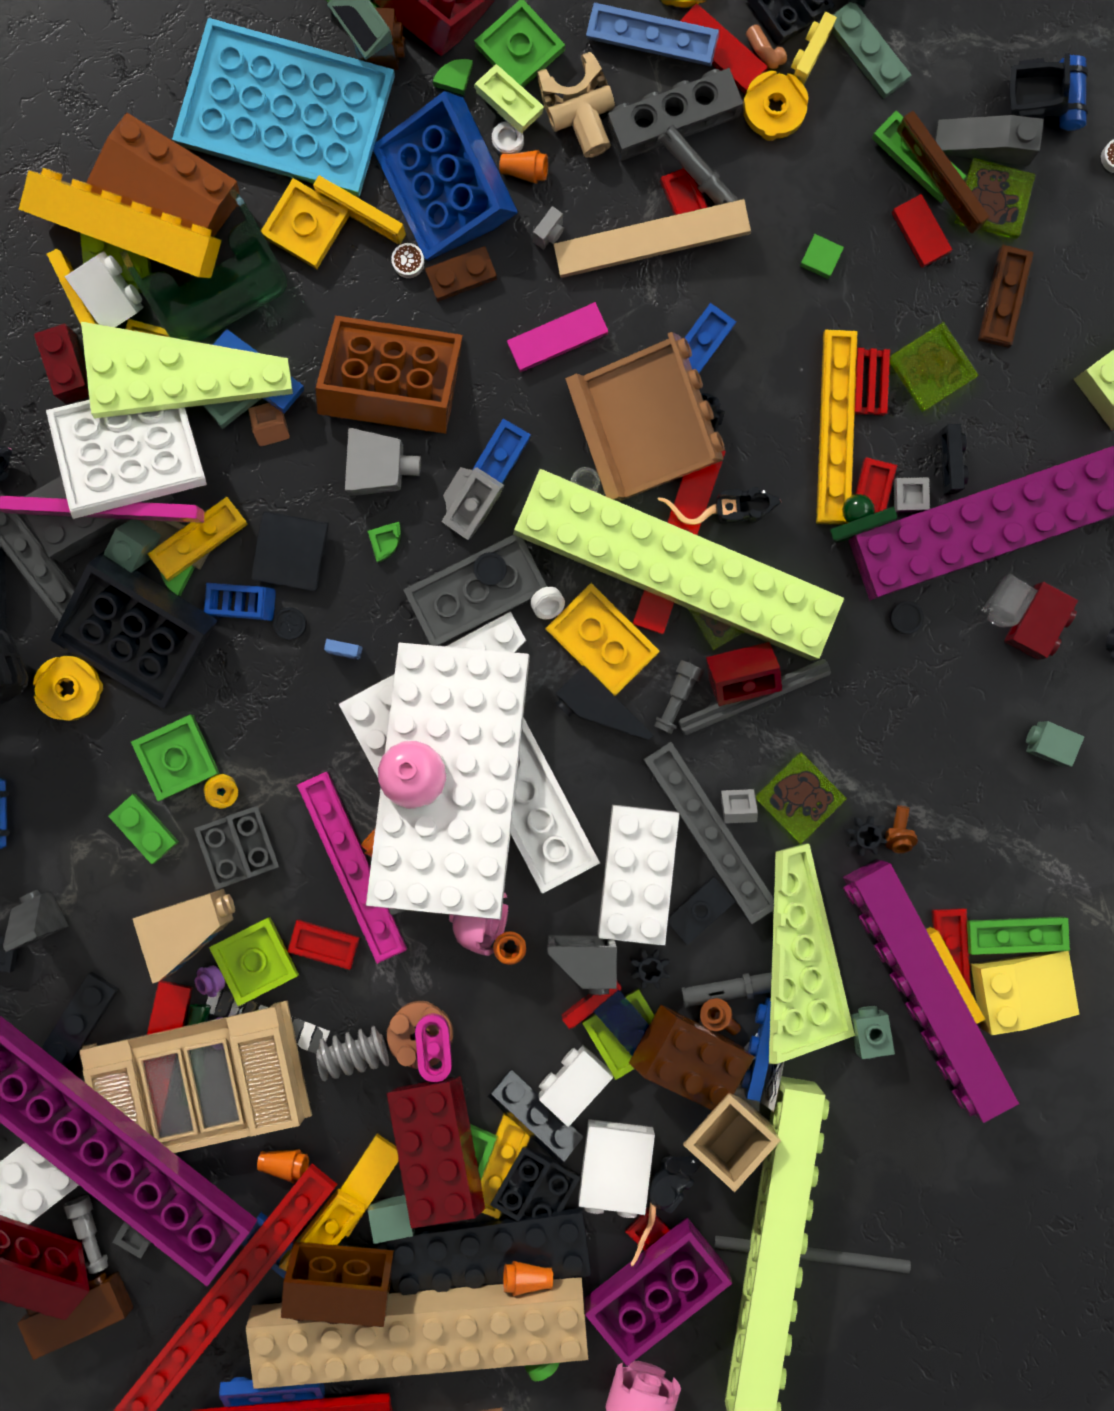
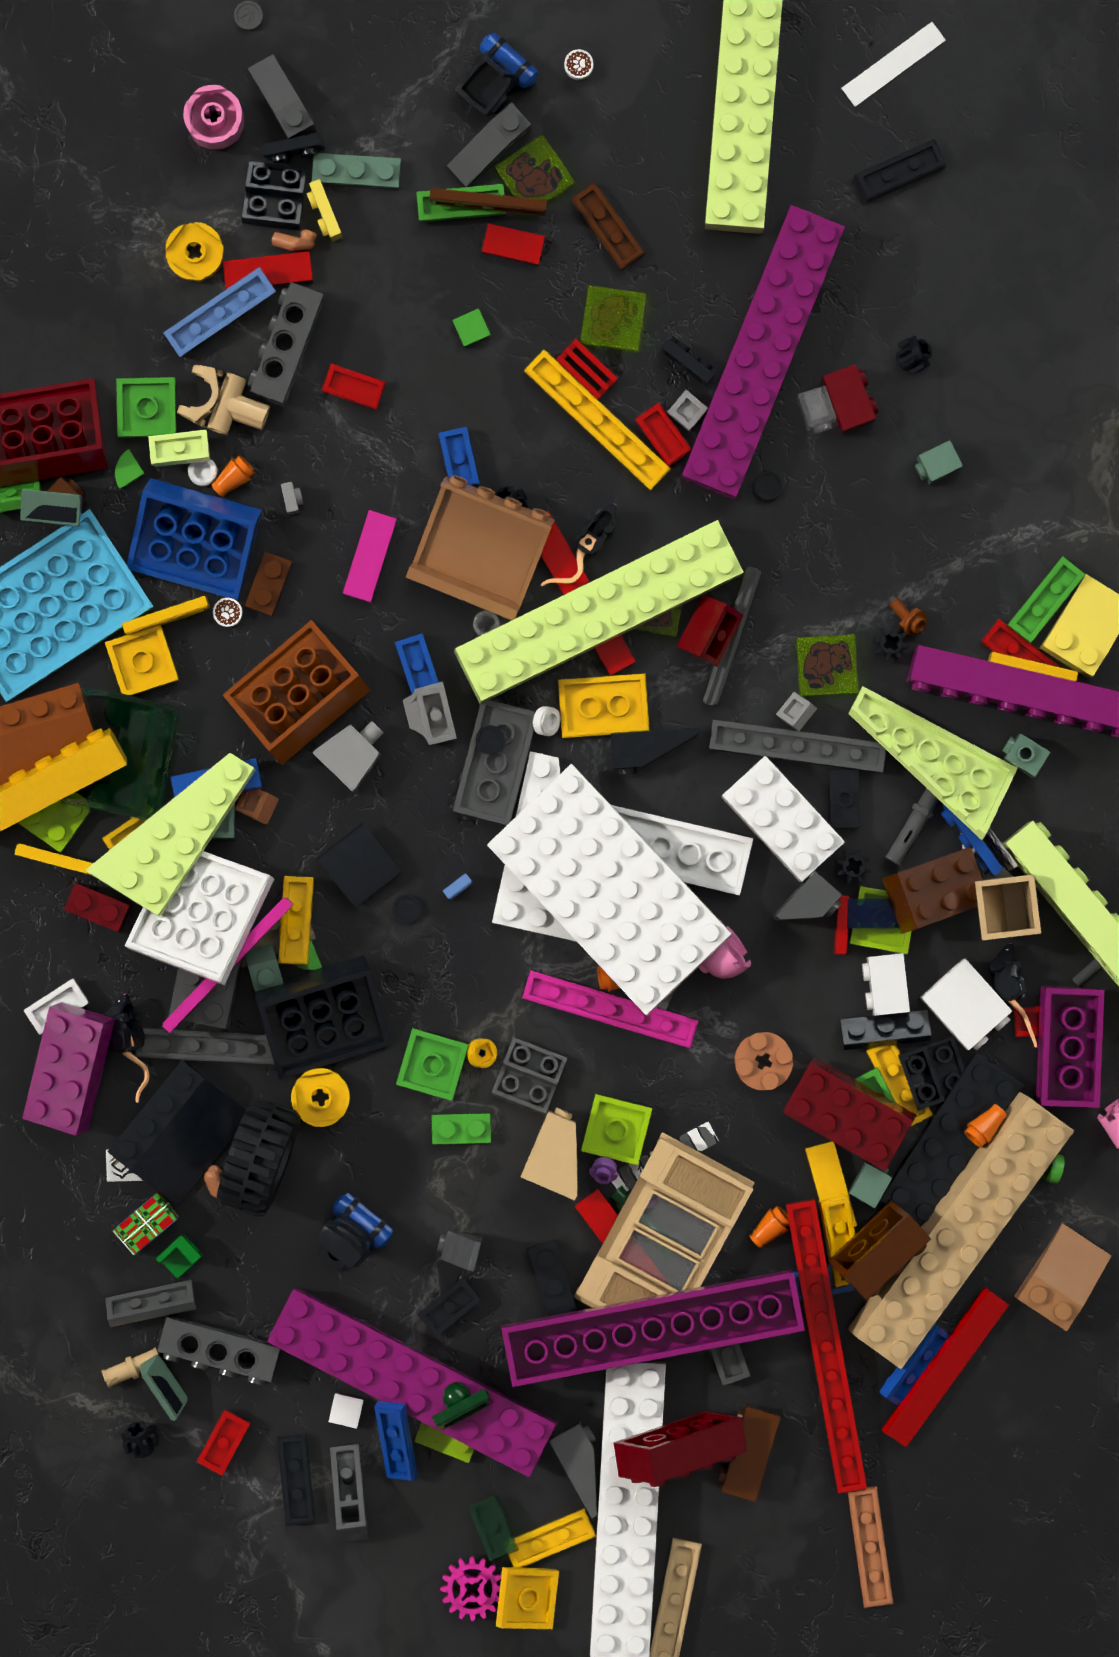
camera: 45 degrees left, 0 degrees up
(80, 1213) = (684, 1392): light grey piece -> none
(105, 290) = (74, 836): white brick -> none
(260, 603) = (380, 912): blue slope -> none
(323, 944) = (646, 1073): red tile -> none
(351, 1053) = (735, 1115): light grey piece -> none
(385, 540) = (407, 794): bright green tile -> none
(411, 774) = (585, 909): bright pink cylinder -> none
(433, 1046) = (779, 1055): dark pink plate -> none
(507, 956) = (765, 944): orange cone -> none
(652, 238) = (359, 434): tan tile -> none
(680, 692) = (685, 684): dark grey piece -> none
(707, 180) = (340, 362): dark grey pin -> none
(717, 1016) = (923, 848): dark orange plate -> none
(779, 87) = (329, 256): yellow plate -> none
(861, 517) = (673, 460): dark green tile -> none

